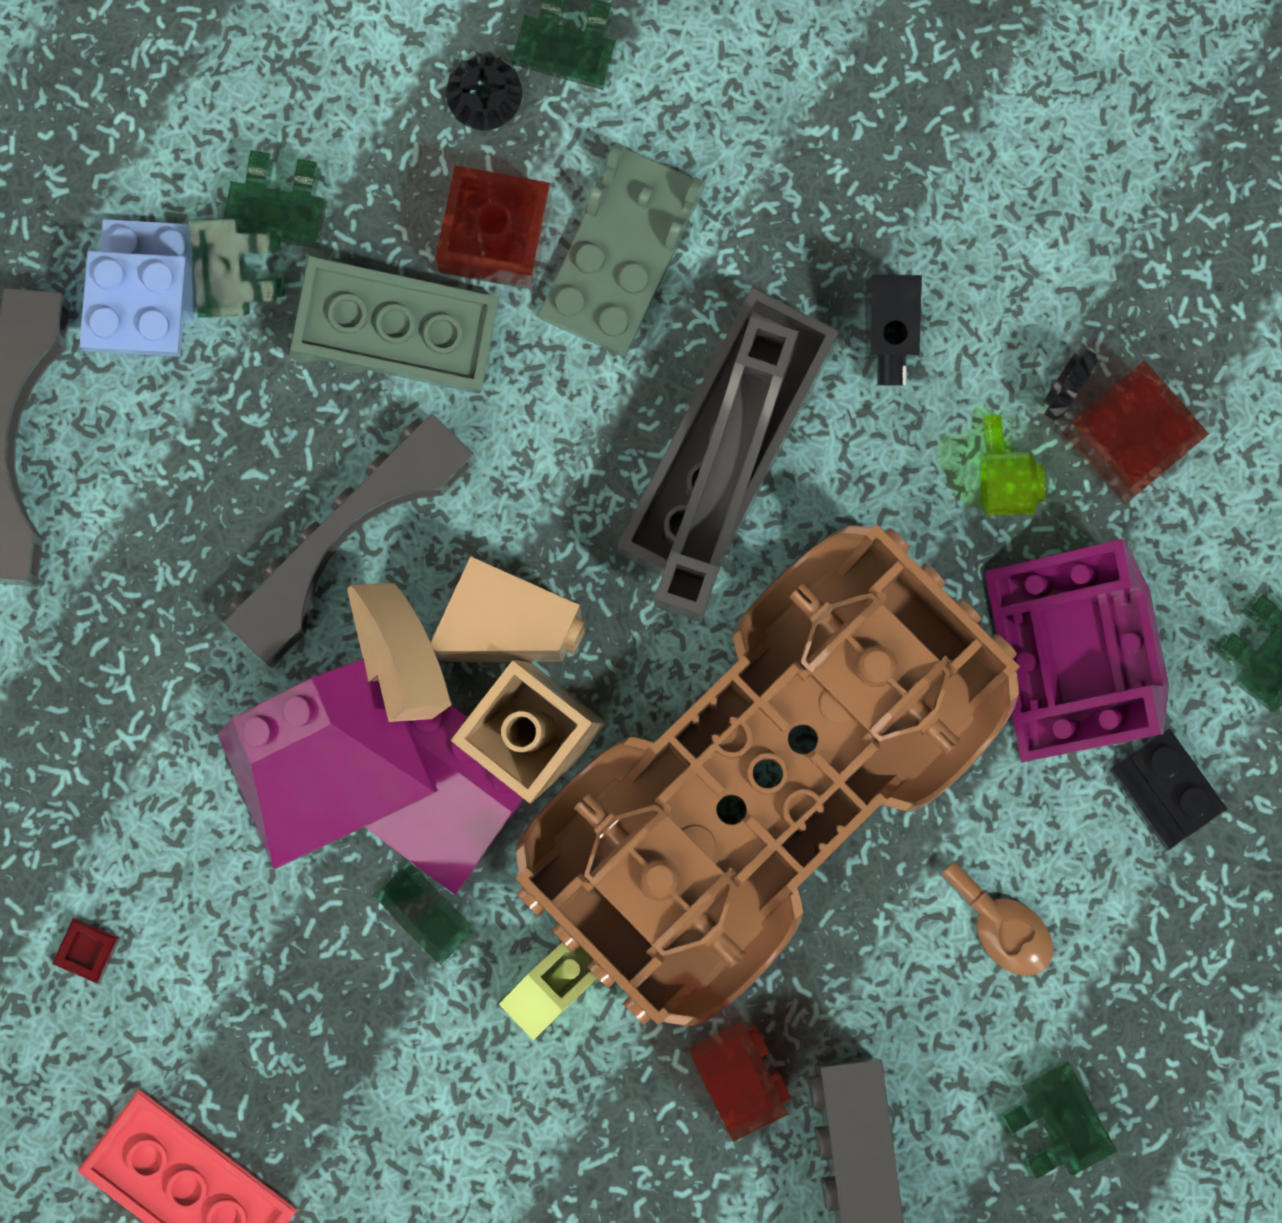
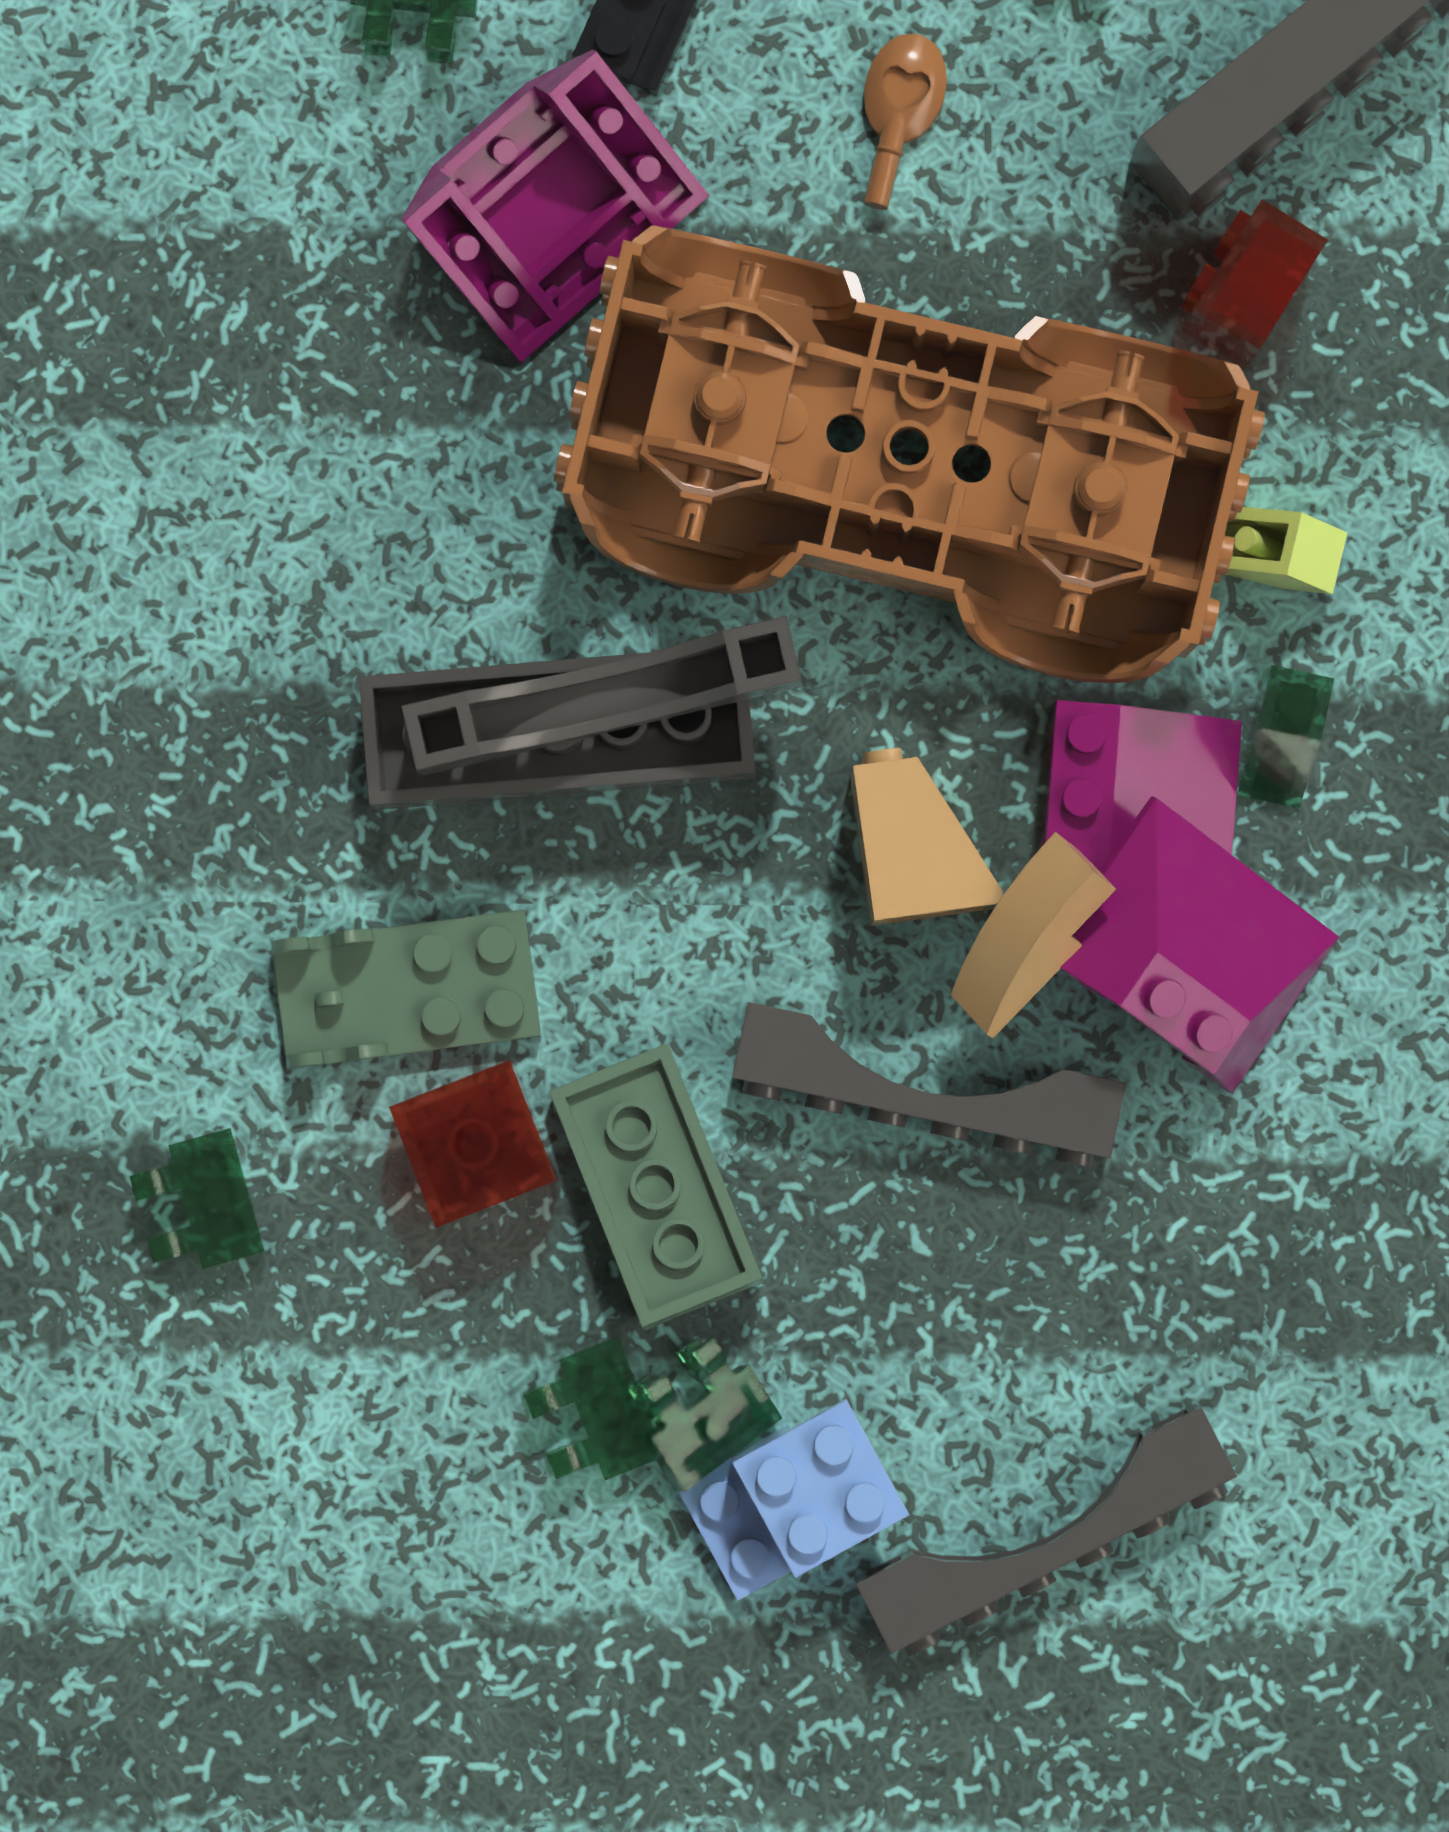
camera: 120 degrees left, 5 degrees up
(501, 104) = (348, 1267): black gear -> none
(528, 730) = (1022, 737): tan slope -> none
(893, 302) = (289, 645): black torso -> none
(1008, 480) = (405, 392): clear neon green piece -> none
(1069, 384) = (254, 391): black gear -> none
(1135, 432) = (264, 285): clear red brick -> none

